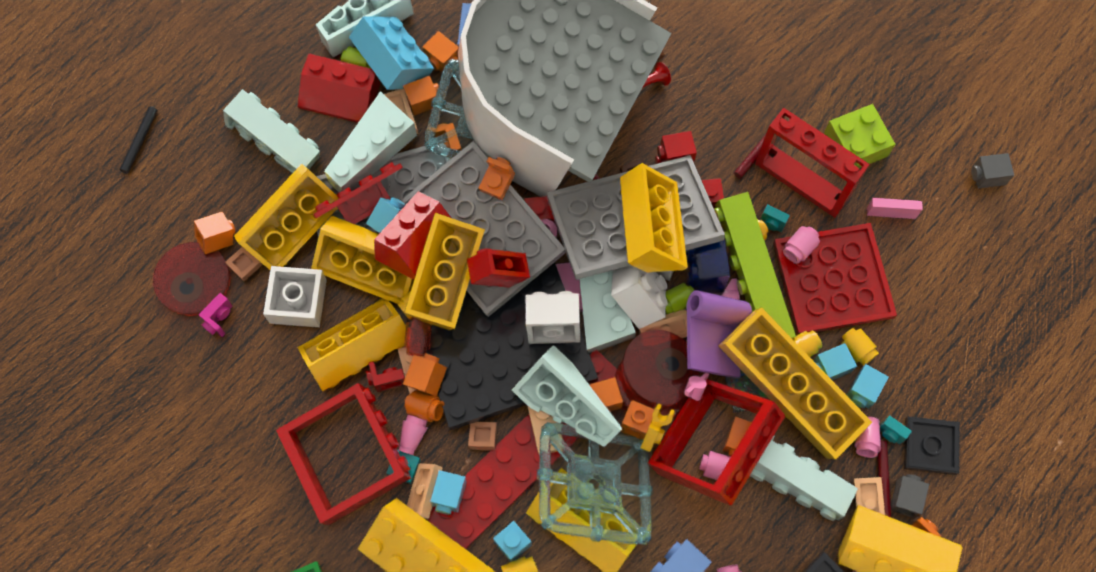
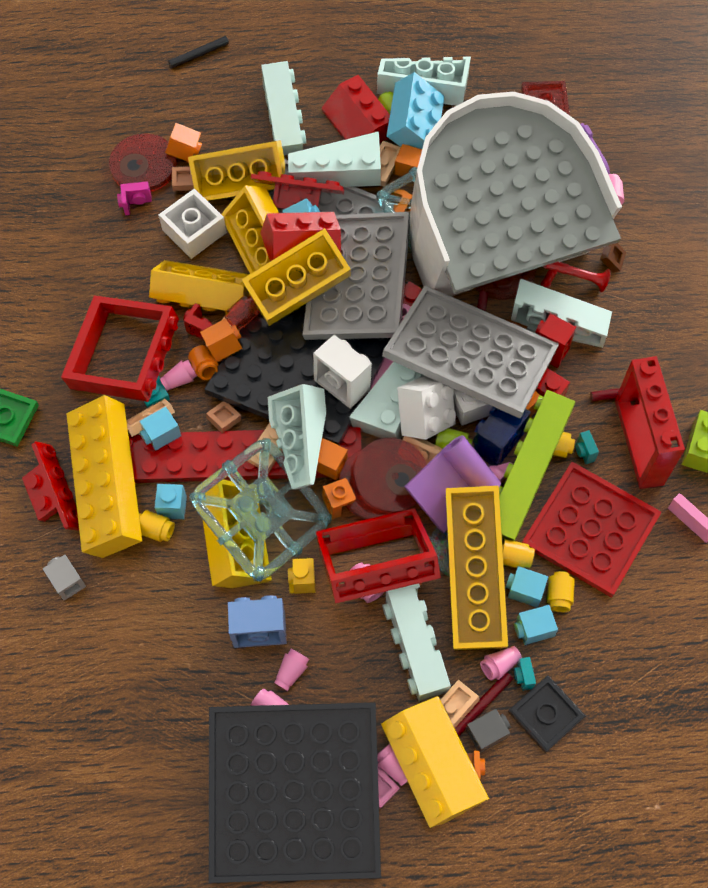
camera: 45 degrees right, 5 degrees down
(497, 178) = (398, 247): orange bracket -> none
(498, 268) = (334, 302): red brick -> none
(642, 135) = (537, 302): none -> light aqua wedge
(652, 221) = (476, 358): yellow slope -> none
(655, 432) = (341, 512): yellow plate -> none
(670, 506) = (302, 576): none -> yellow brick
(696, 386) = (400, 507): bright pink piece -> none
(801, 244) = (586, 478): bright pink brick -> none

